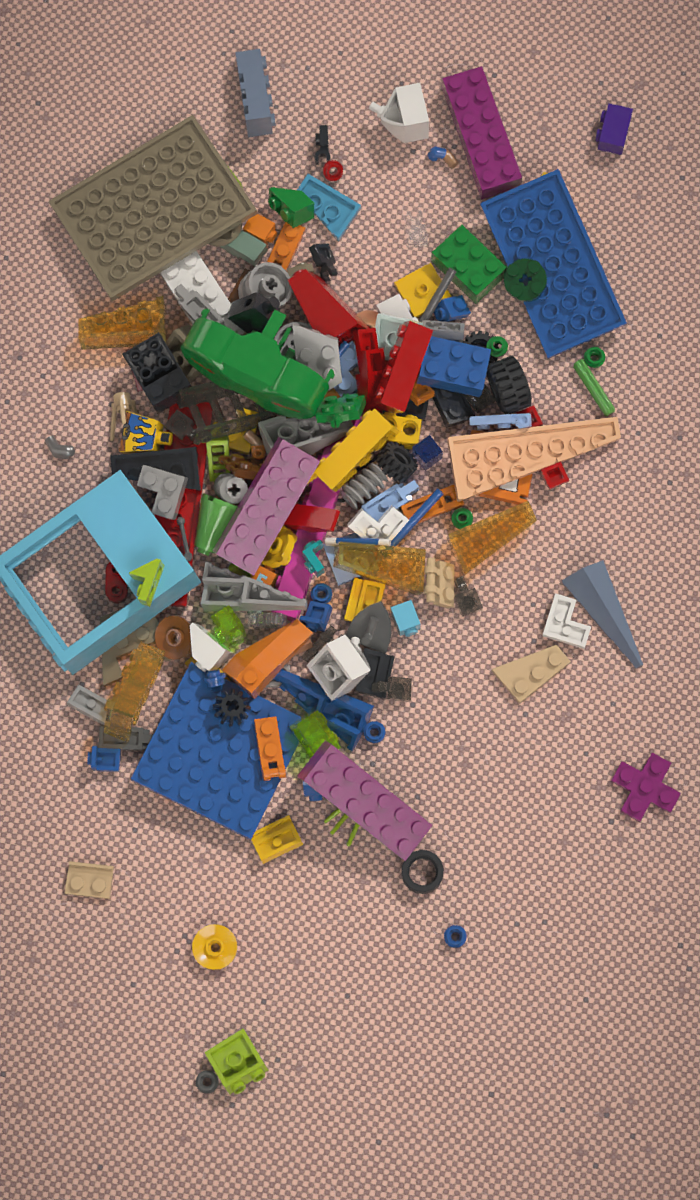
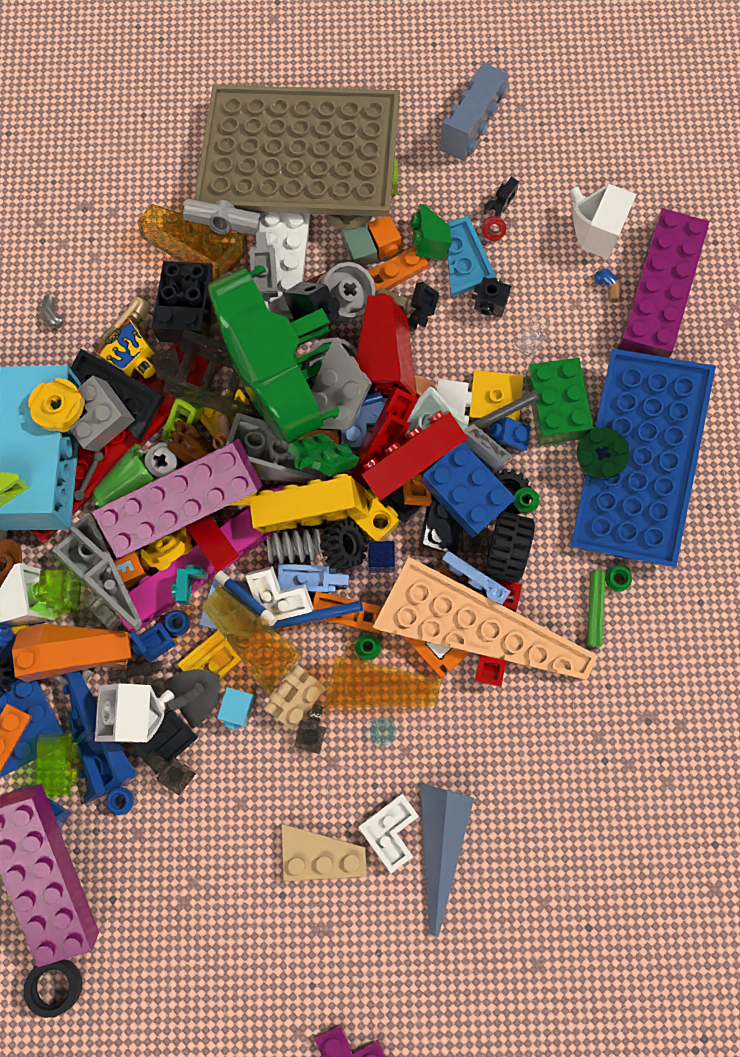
camera: 35 degrees right, 0 degrees up
(129, 492) = (63, 417): none -> yellow plate
(139, 294) = (221, 216): none -> light grey piece
(369, 222) = (491, 297): none -> black brick
(513, 571) = (383, 740): none -> clear light blue plate

